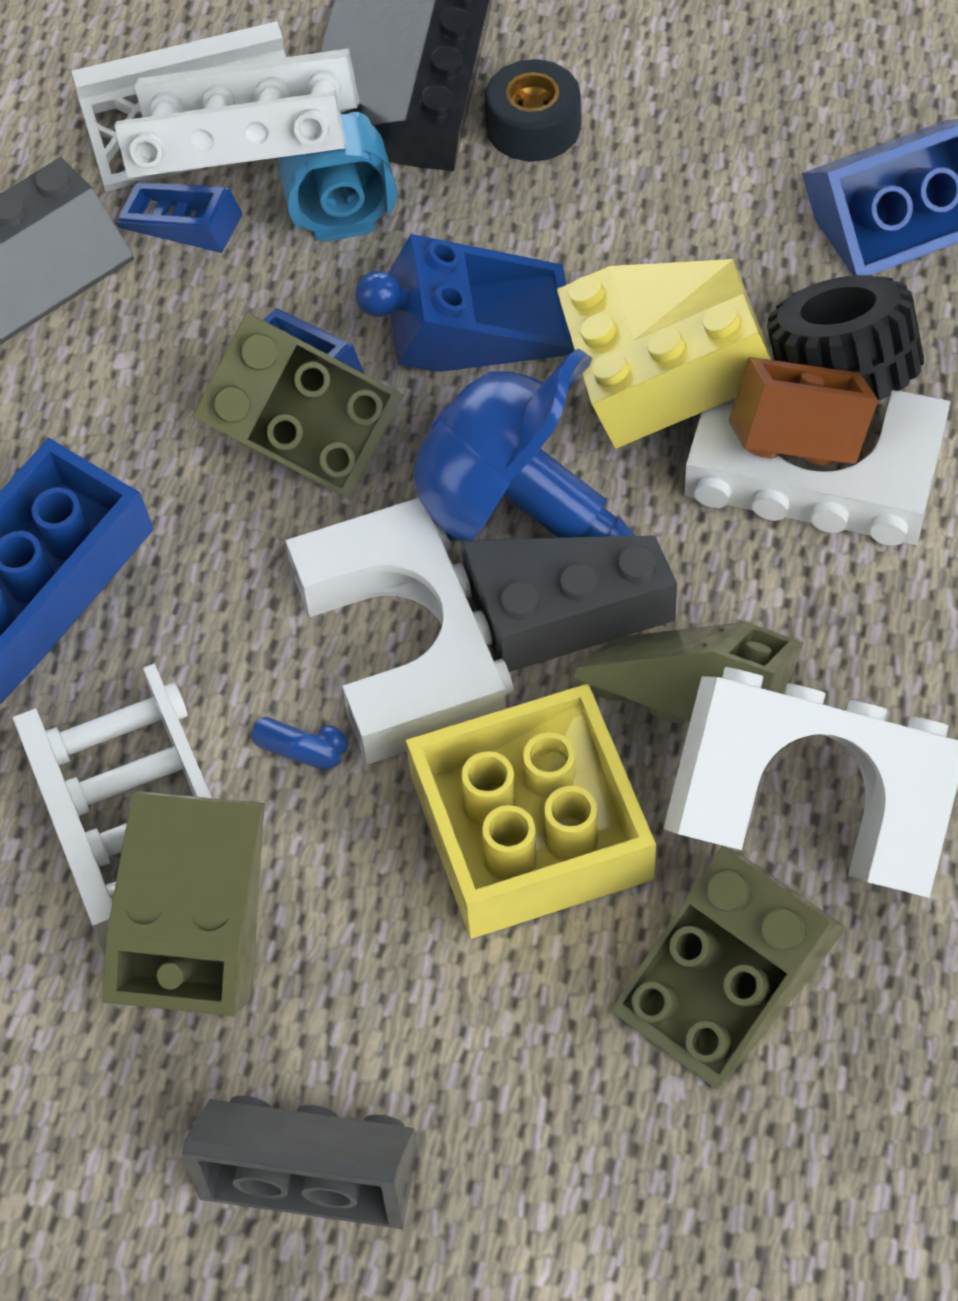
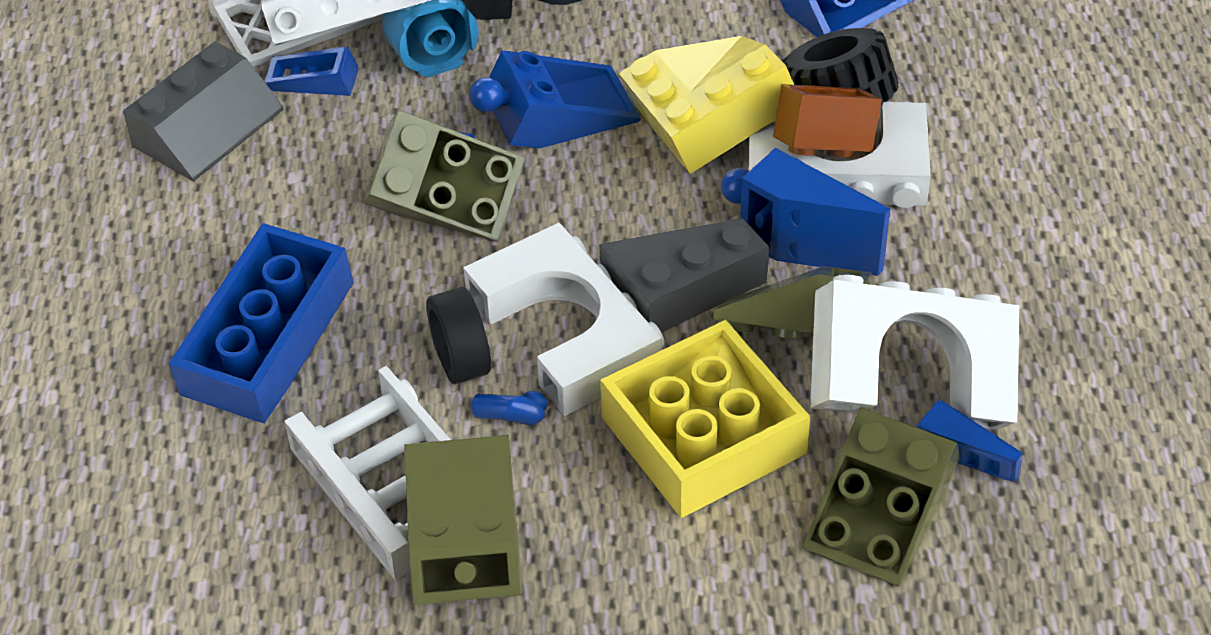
camera: 15 degrees left, 10 degrees down
(254, 635) = (458, 335): none -> black tyre
(491, 448) = (606, 178): blue piece -> none
(740, 543) = (809, 214): none -> blue slope
(847, 898) = (976, 445): none -> blue slope

